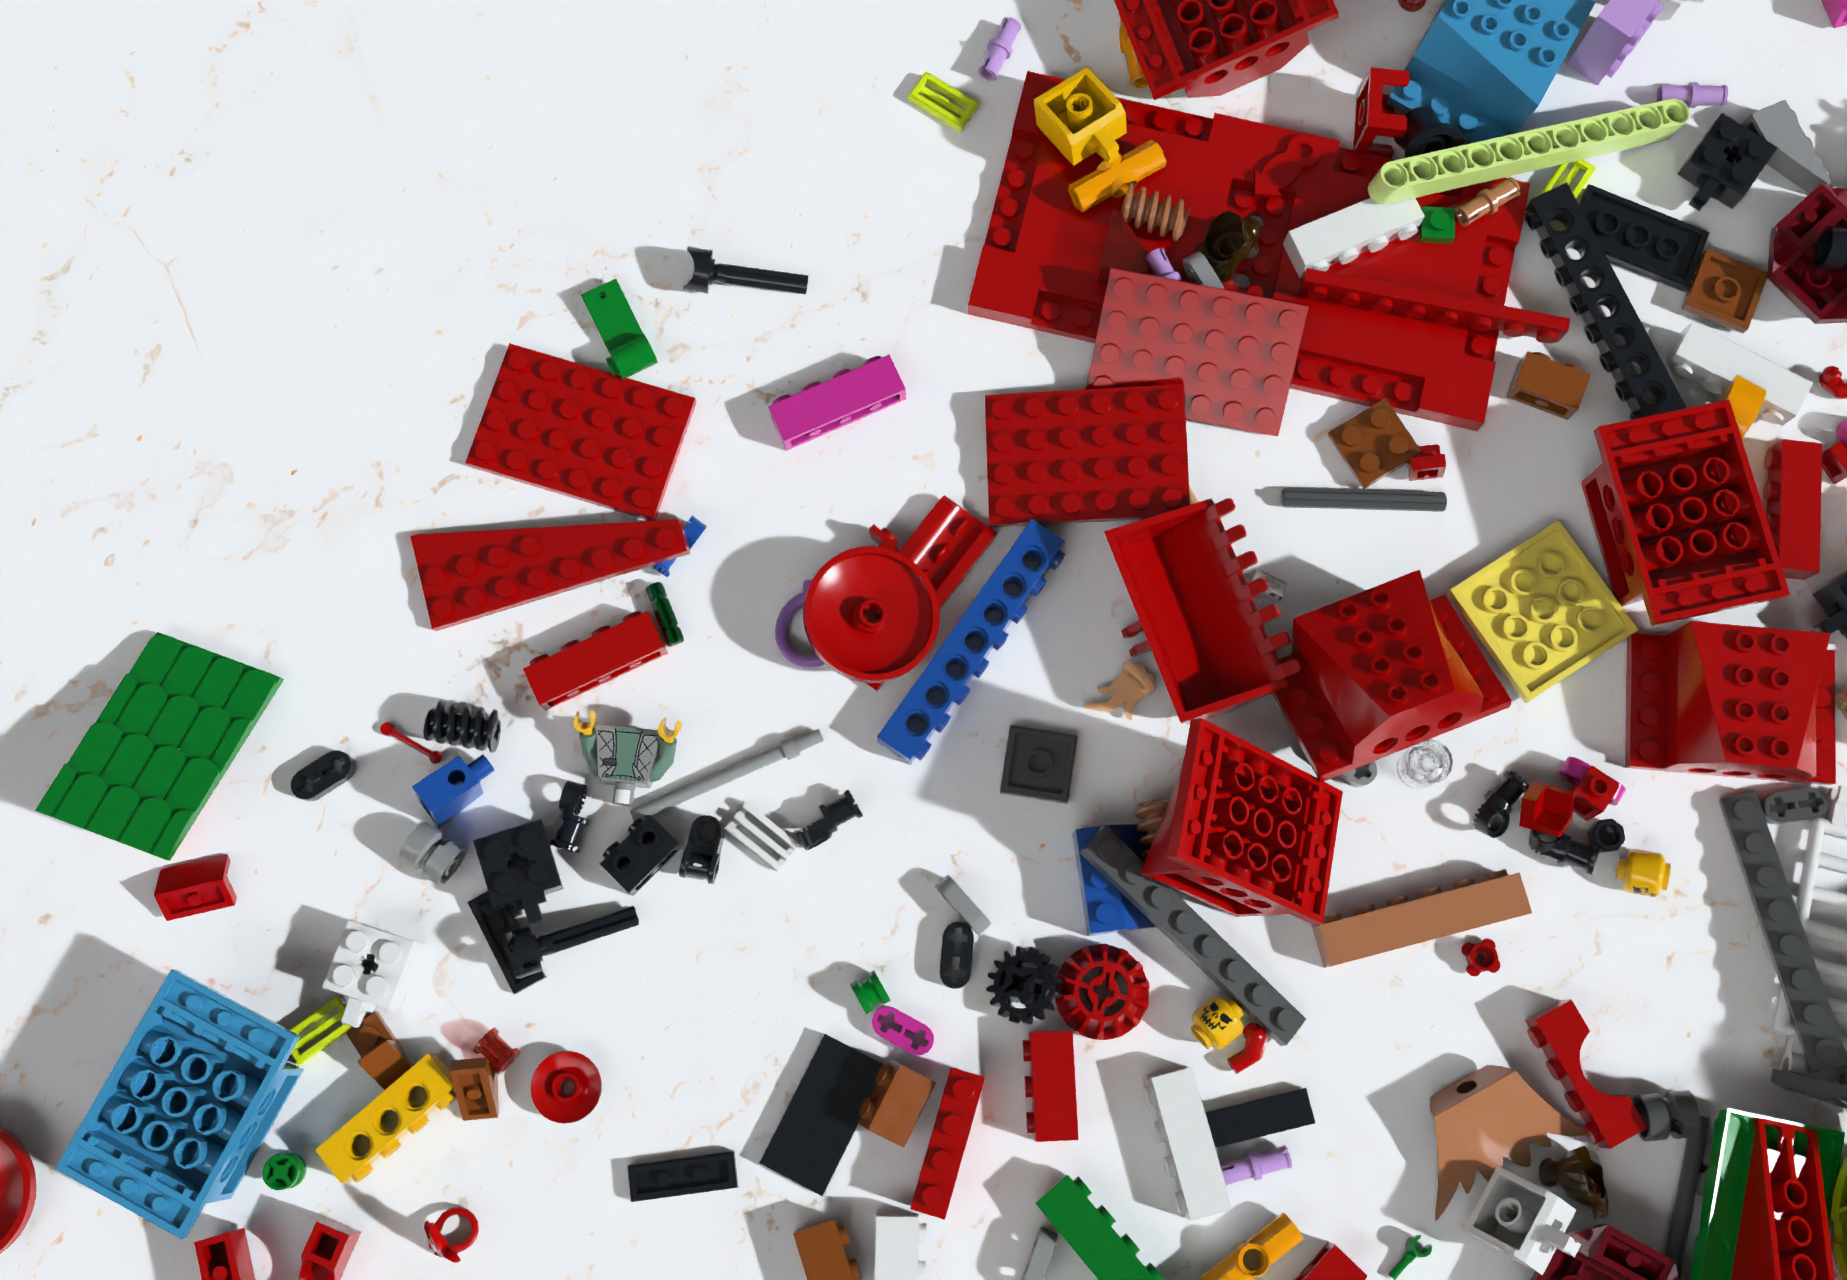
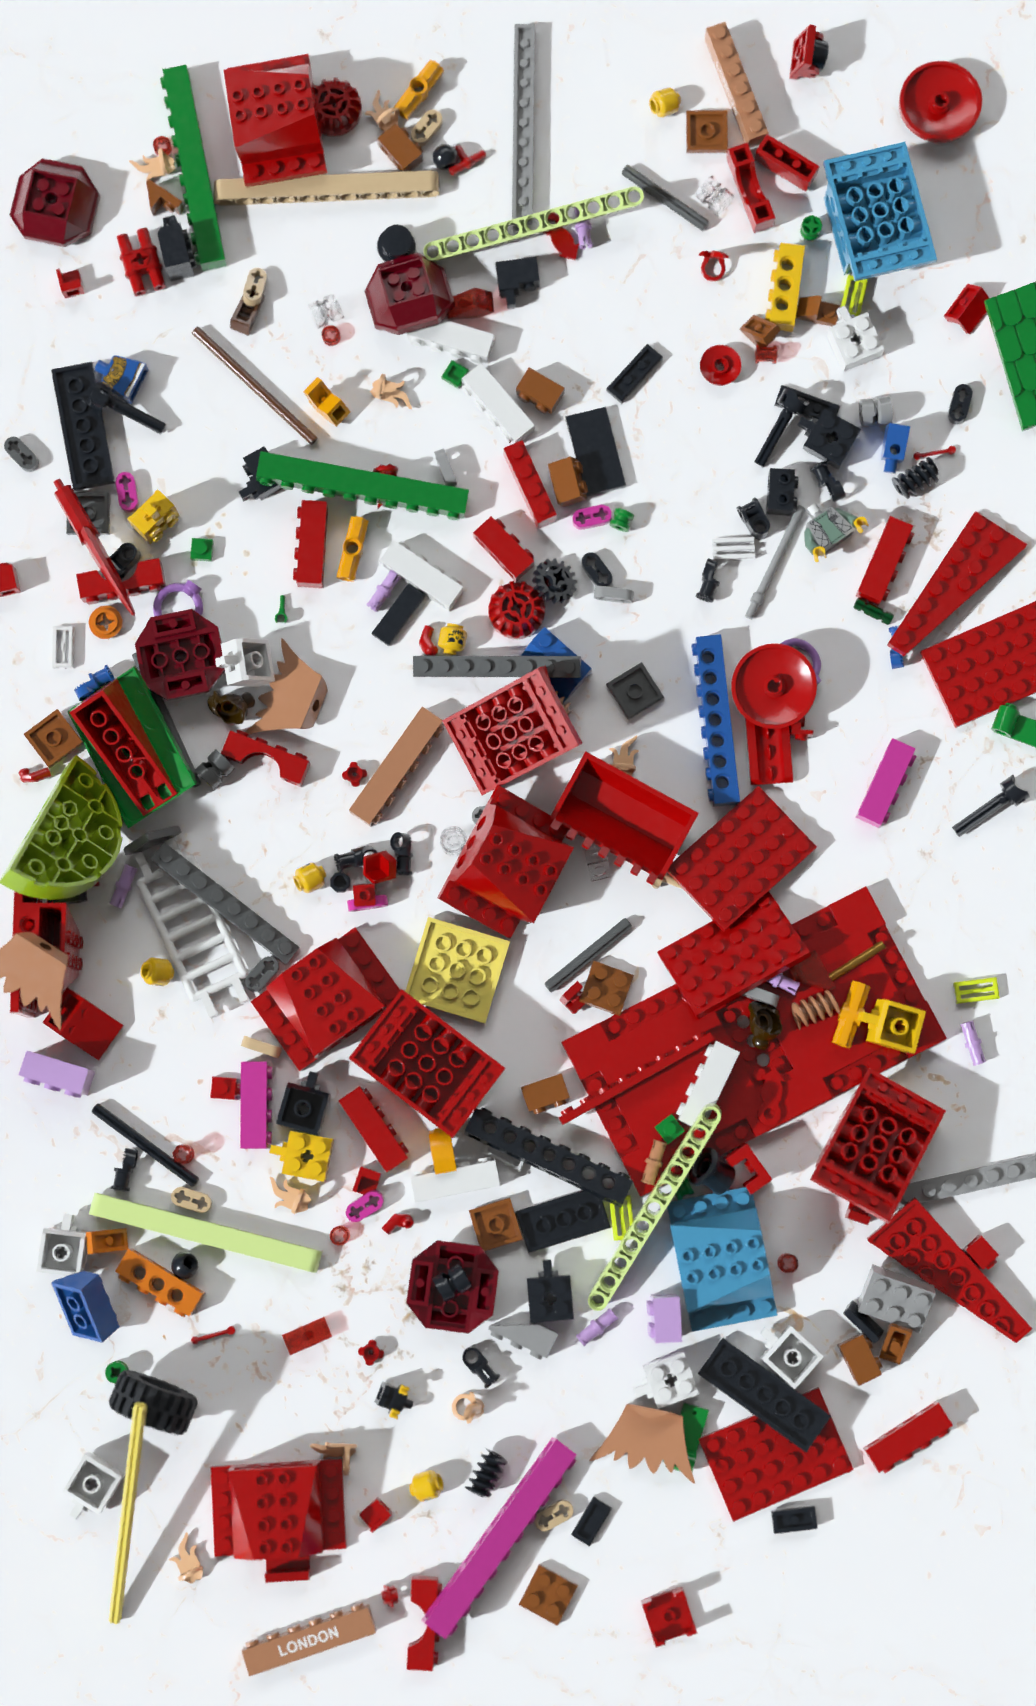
camera: 140 degrees right, 5 degrees up
(1057, 230) = (857, 961): none -> pearl gold bar

